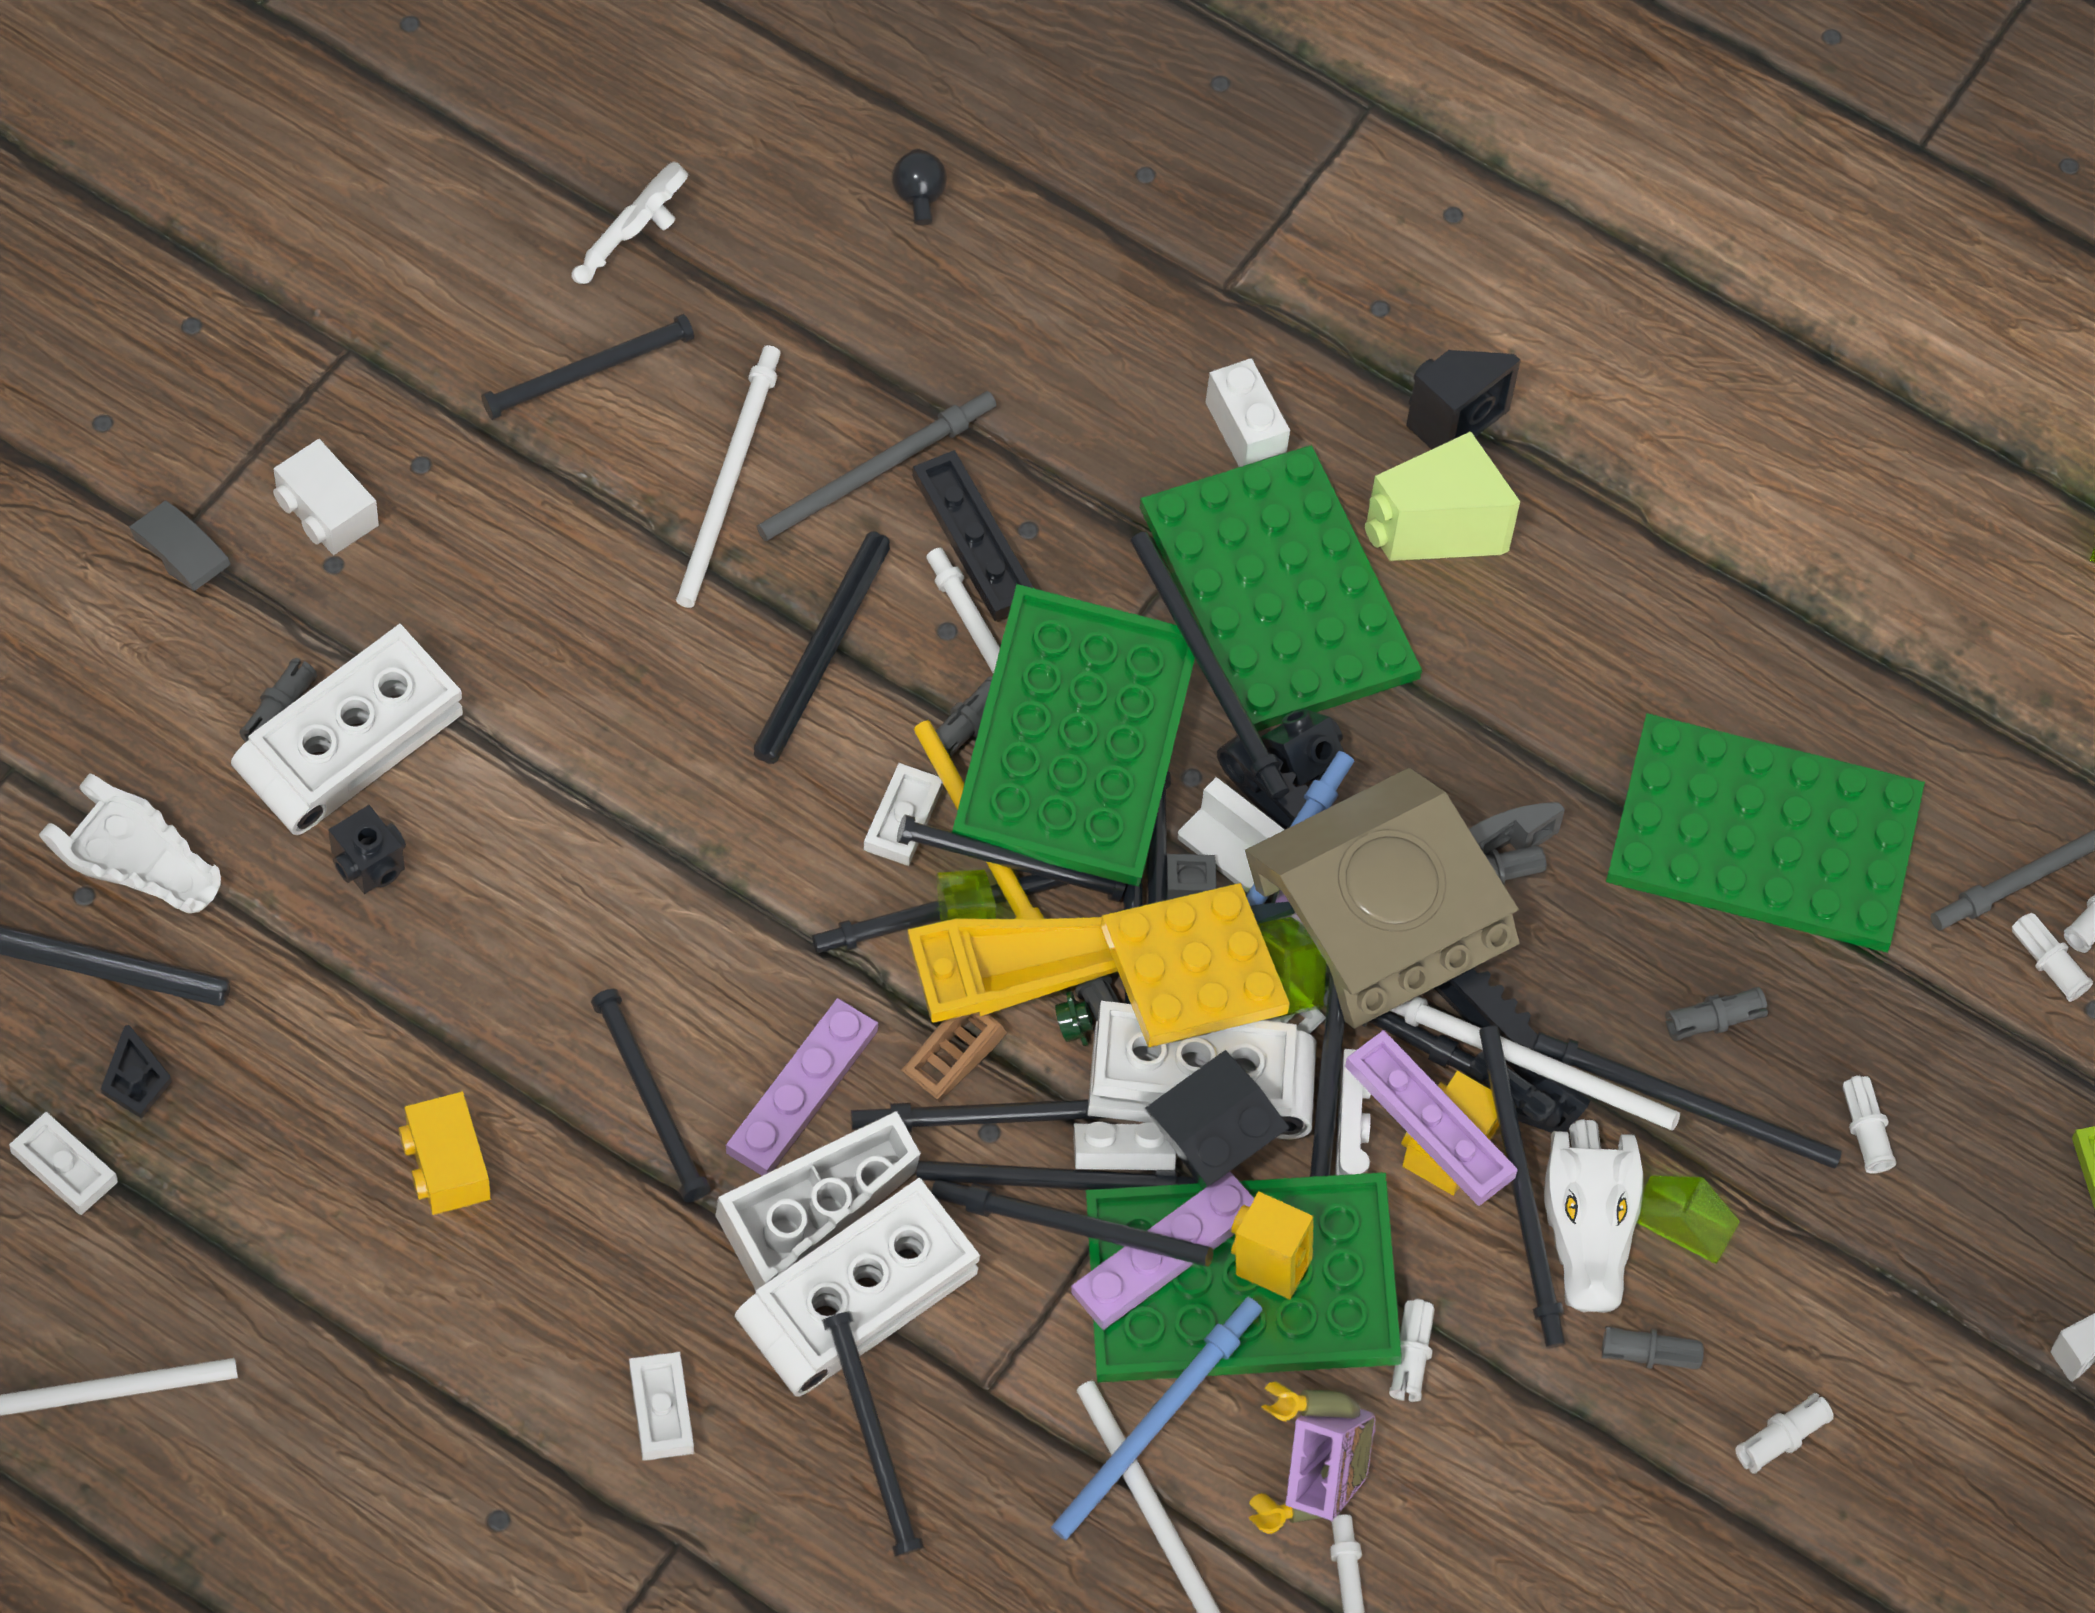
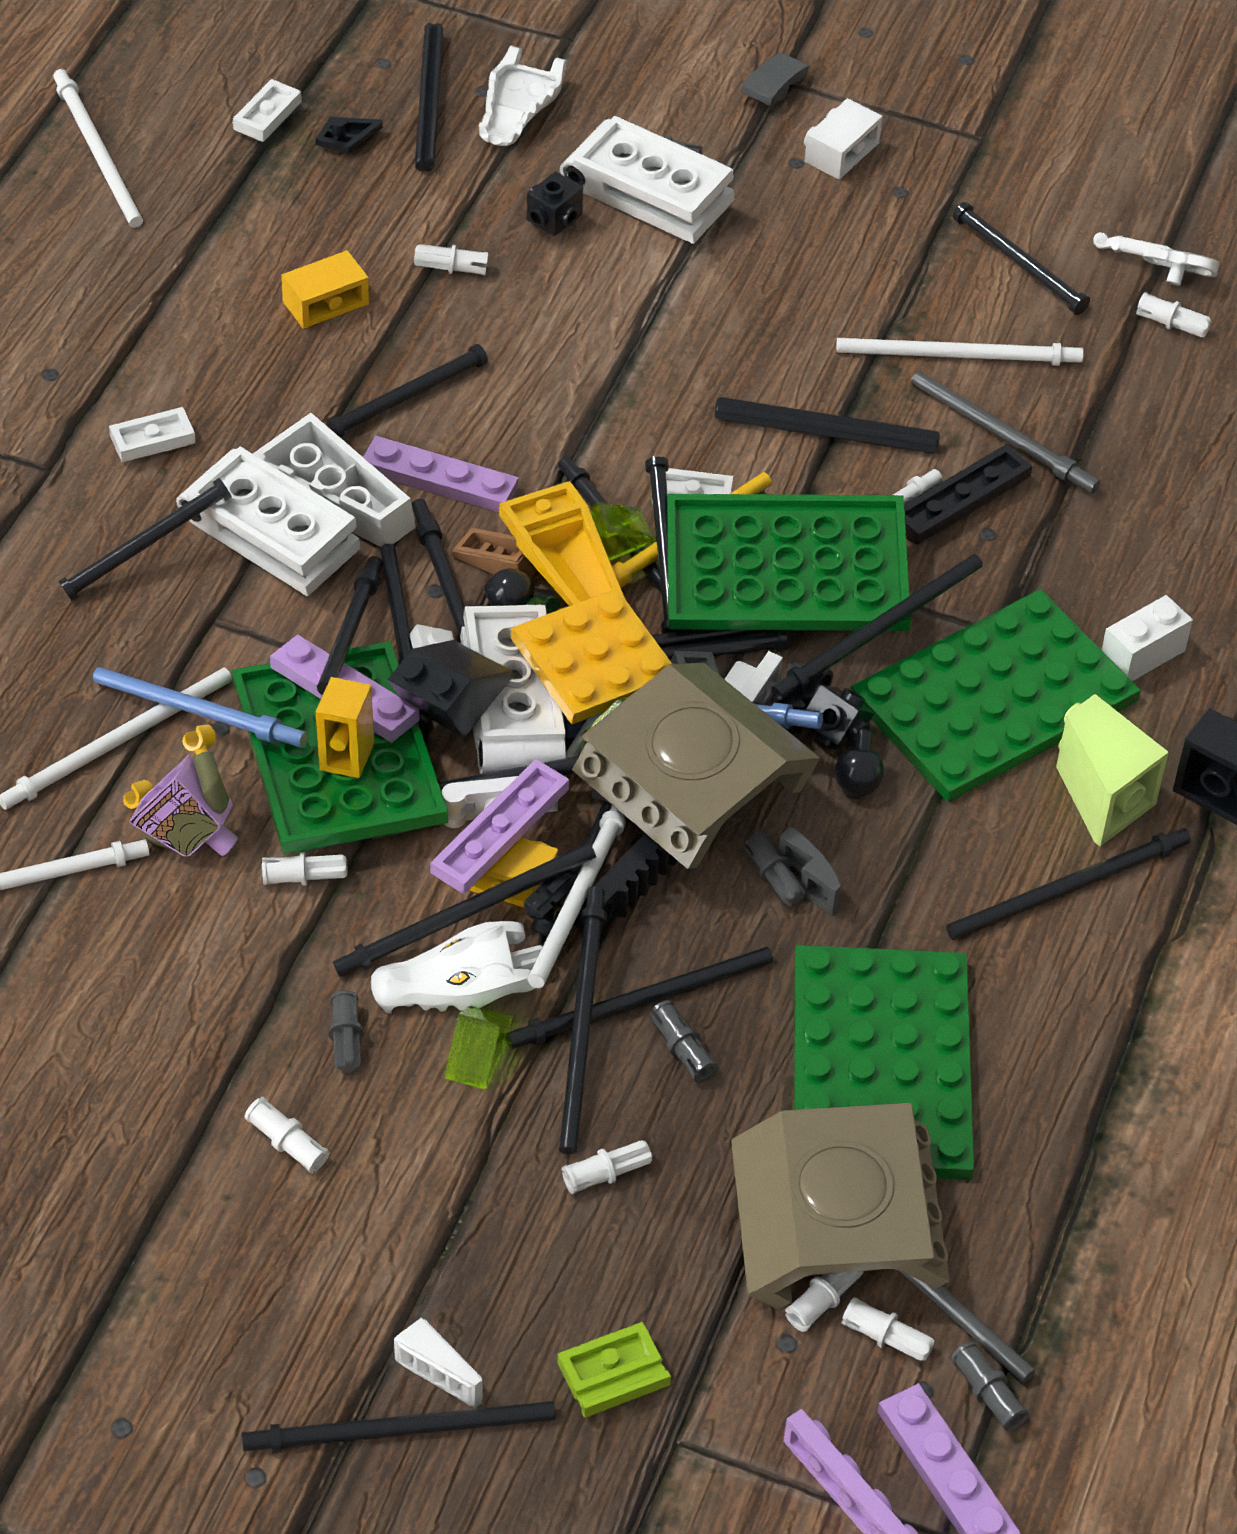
camera: 80 degrees right, 10 degrees down
(425, 993) = (451, 259): none -> white axle
(730, 239) = (1173, 315): none -> white axle
(1036, 1039) = (512, 588): none -> black piece
(1377, 745) = (859, 768): none -> black piece
(1528, 493) = (1160, 845): none -> black bar
(1679, 1152) = (538, 1030): none -> black bar
(1976, 911) = (837, 1197): none -> dark tan panel

